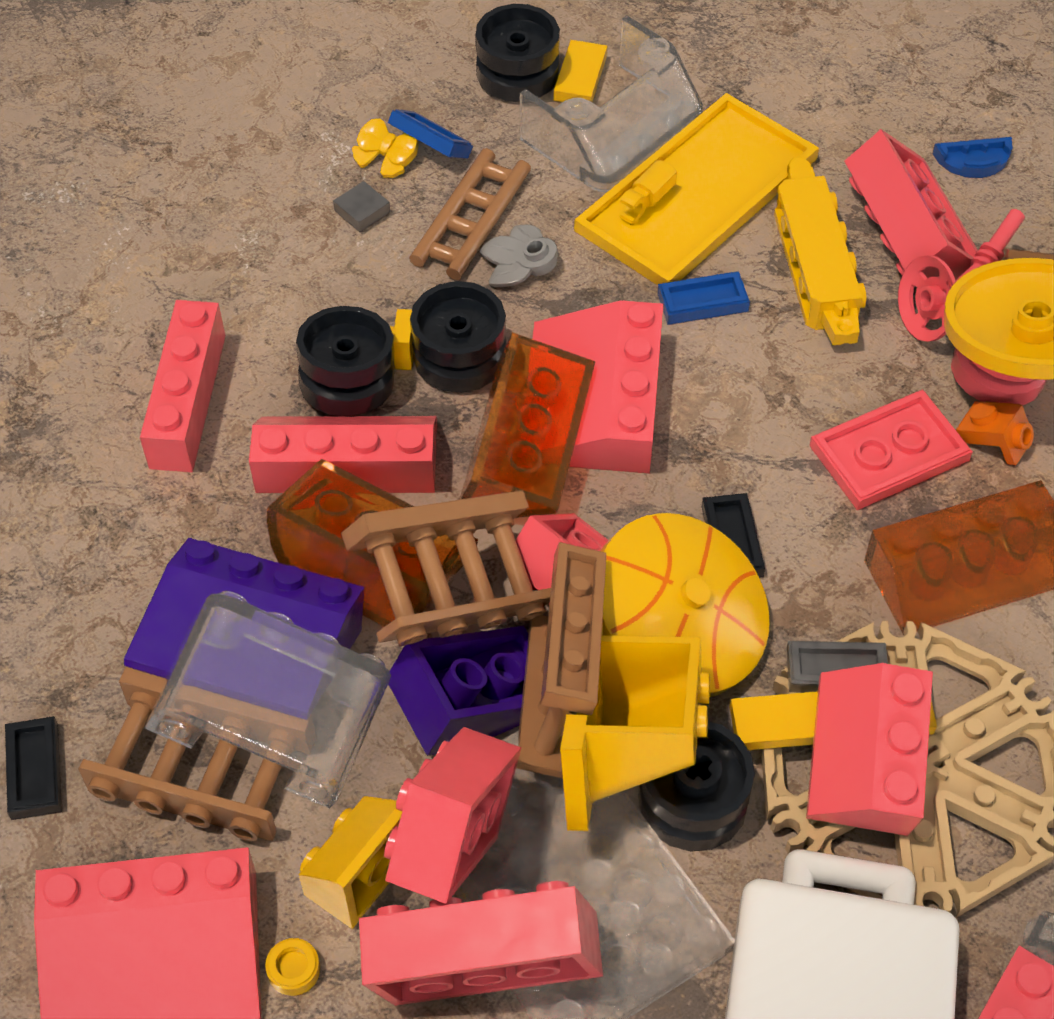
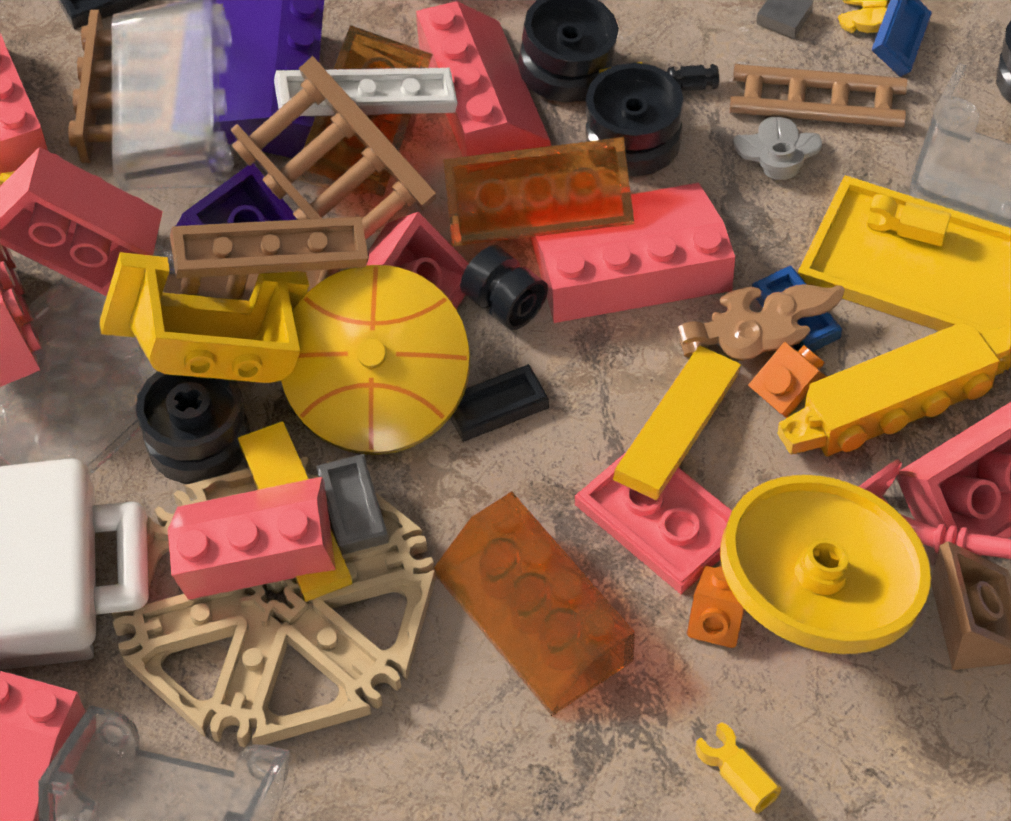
camera: 75 degrees right, 0 degrees up
(368, 490) = (380, 90): none -> white tile
(411, 287) = (696, 77): none -> black piece
(621, 486) = (499, 283): none -> black wheel
(728, 326) = (749, 333): none -> medium nougat piece
(782, 318) = (787, 377): none -> orange bracket
(808, 405) = (676, 422): none -> yellow tile

